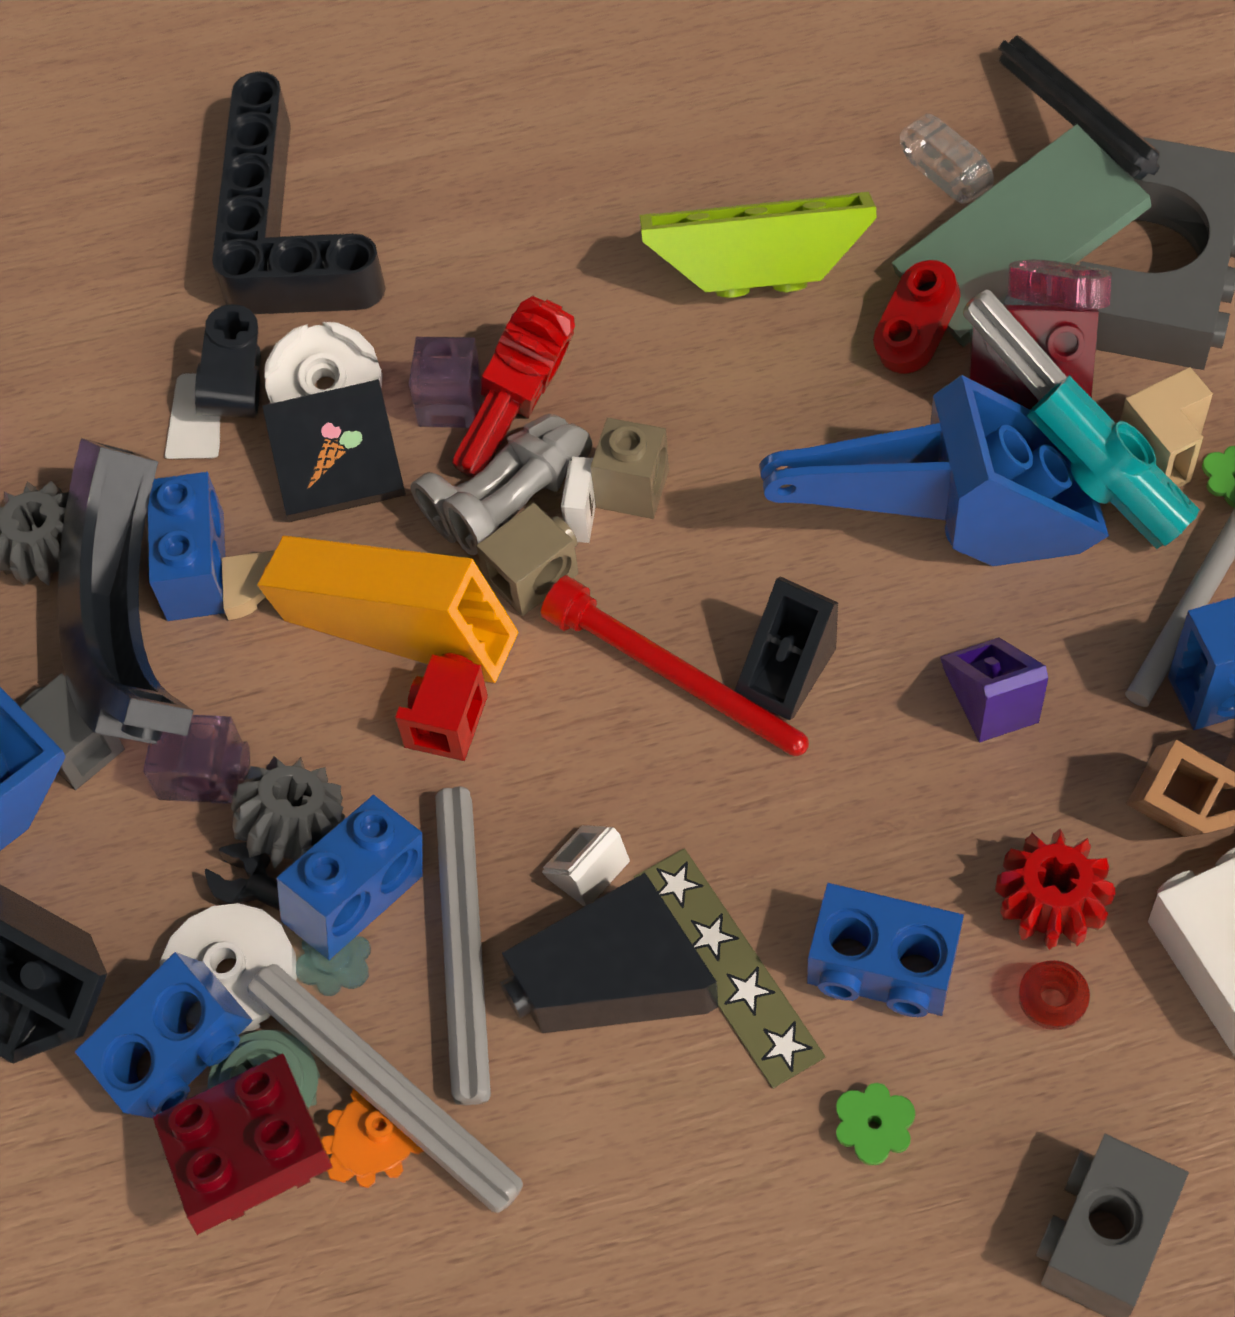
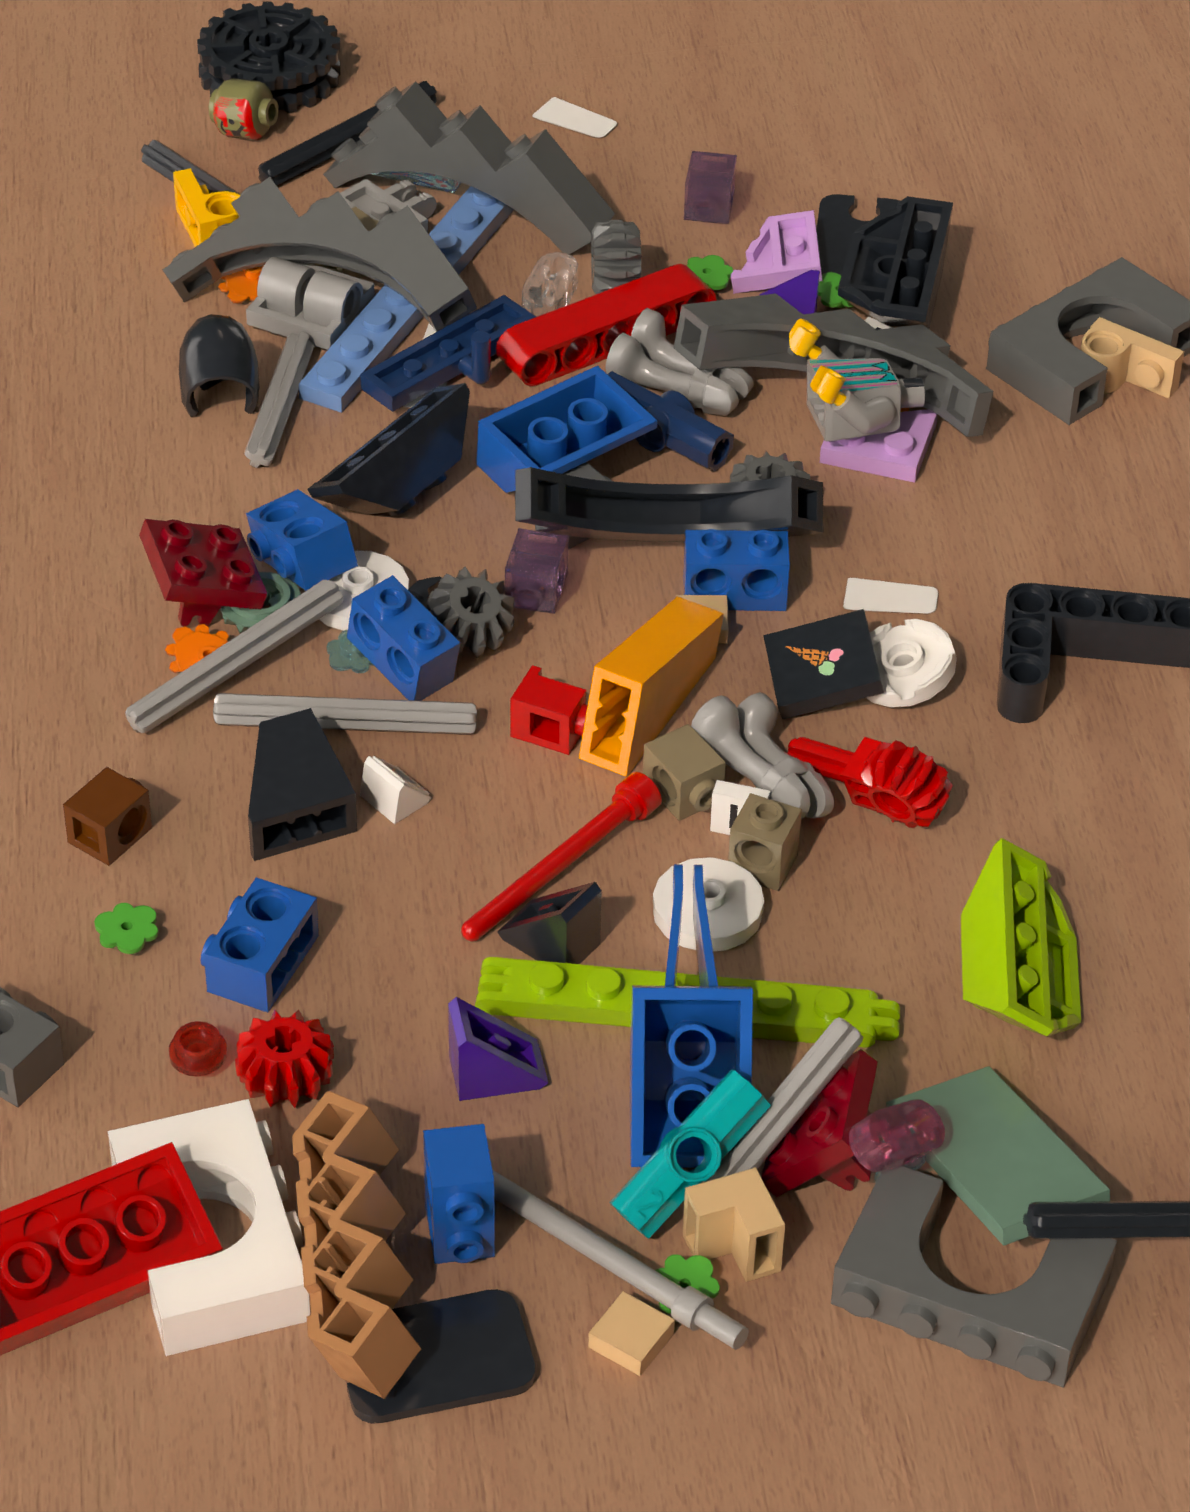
camera: 90 degrees right, 15 degrees down
(229, 364) = (923, 596): black piece -> none
(445, 381) = (882, 717): clear purple brick -> none
(699, 1180) = (107, 815): none -> reddish brown brick
(718, 545) = (731, 898): none -> white plate
(744, 985) = (288, 868): olive sticker -> none
(861, 552) = (605, 998): none -> lime hinge
(919, 312) = (917, 1069): red plate -> none
(946, 158) = (1119, 1126): clear beam -> none

